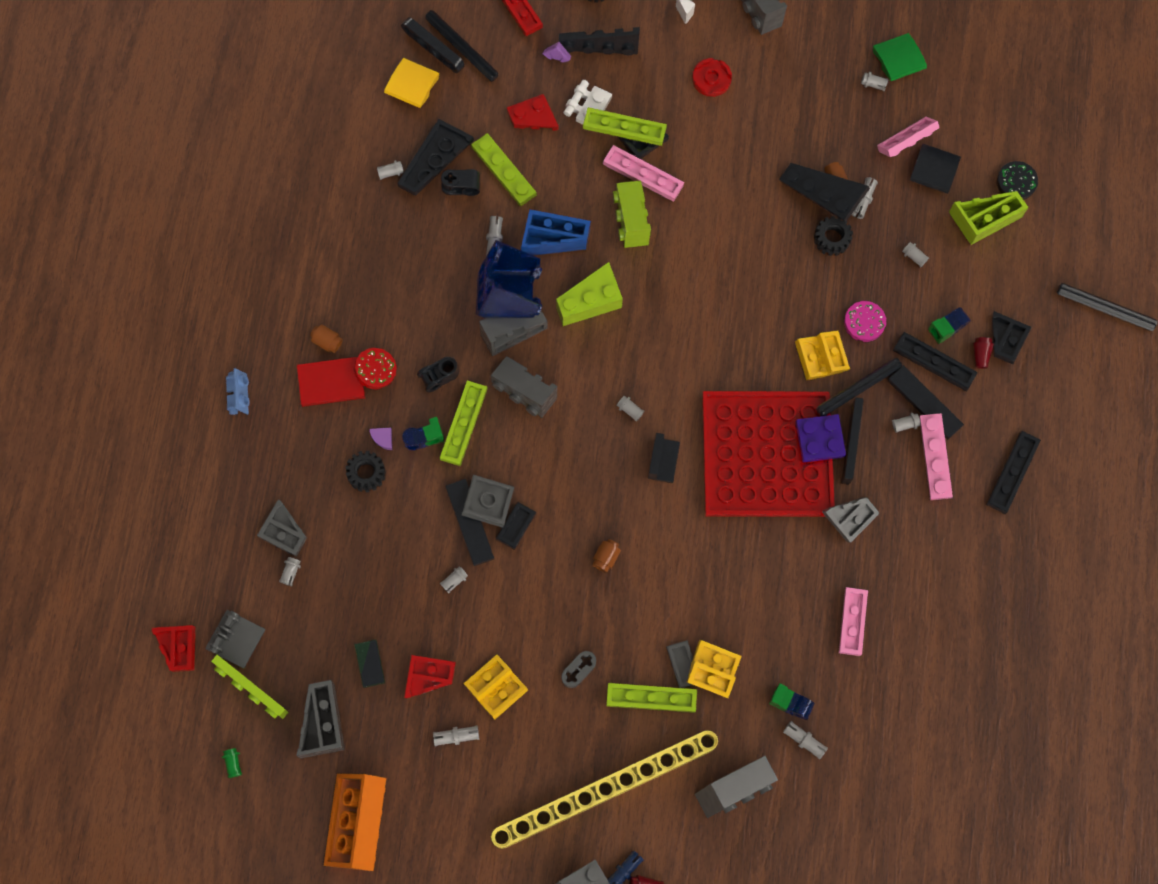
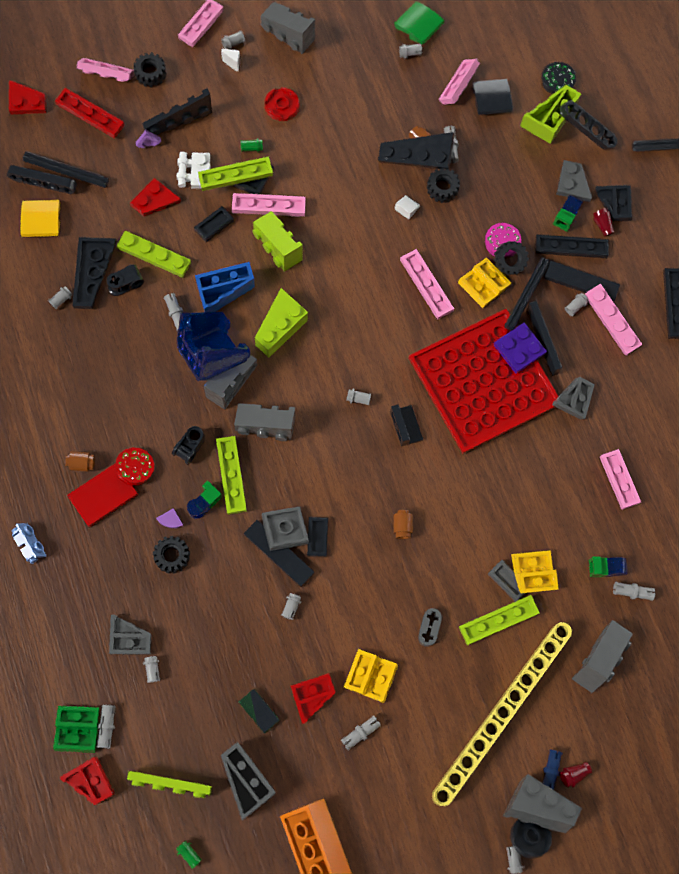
camera: 30 degrees left, 0 degrees up
(190, 591) = (76, 729): none -> green slope
(219, 603) = (106, 726): none -> light grey pin
(235, 639) = (135, 749): dark grey hinge -> none
(579, 167) = (214, 224): none -> black tile
(658, 105) = (252, 145): none -> green pin
(761, 328) = (427, 284): none -> bright pink plate
(783, 240) = (406, 207): none -> white slope
(856, 330) = (522, 257): none -> black tyre
(915, 254) = (513, 170): light grey pin -> none
(973, 296) = (573, 182): none -> dark grey wing
(1022, 242) = (590, 121): none -> black beam

